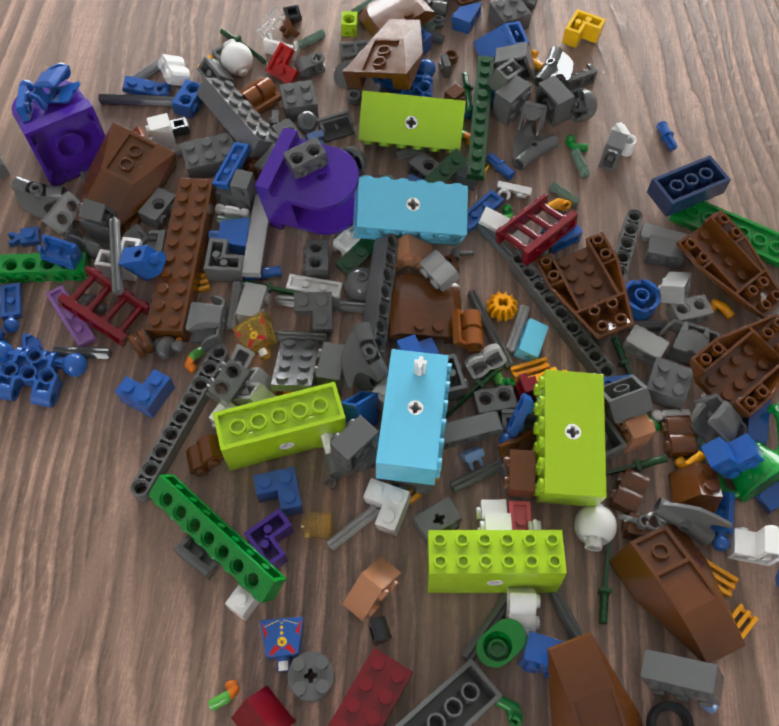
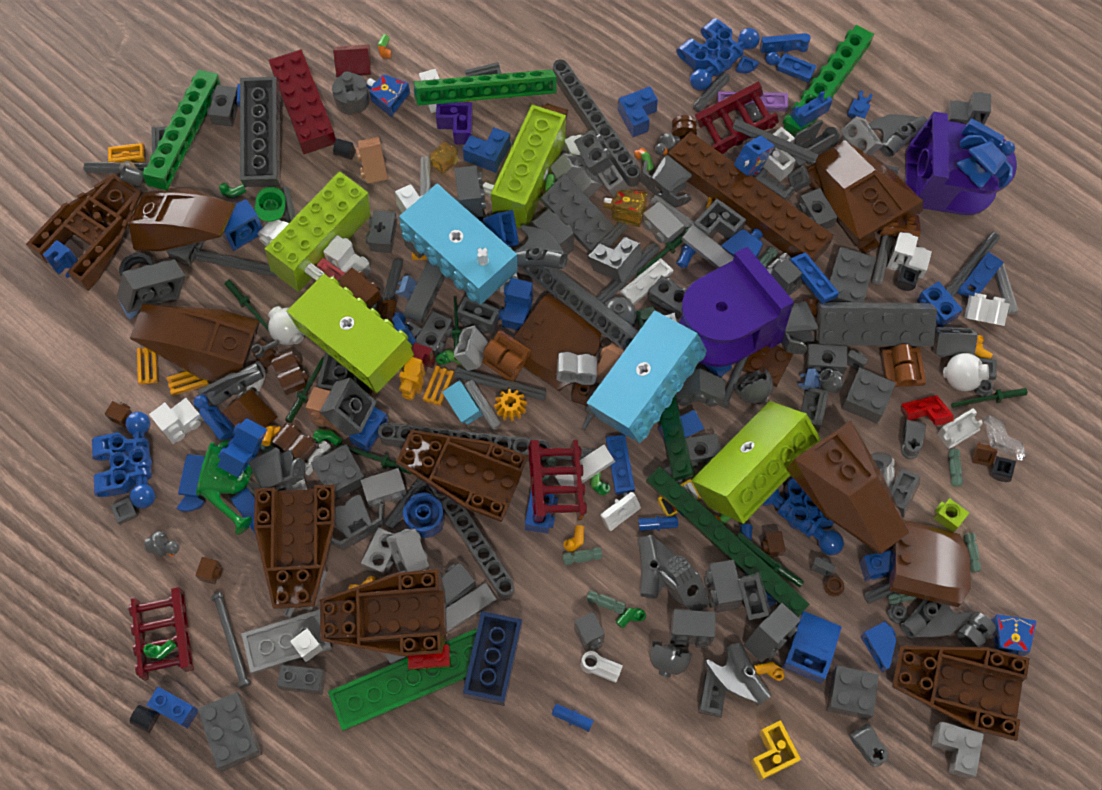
camera: 130 degrees right, 5 degrees up
(96, 212) = (828, 146): dark grey brick -> none
(306, 158) = (744, 298): dark grey brick -> none

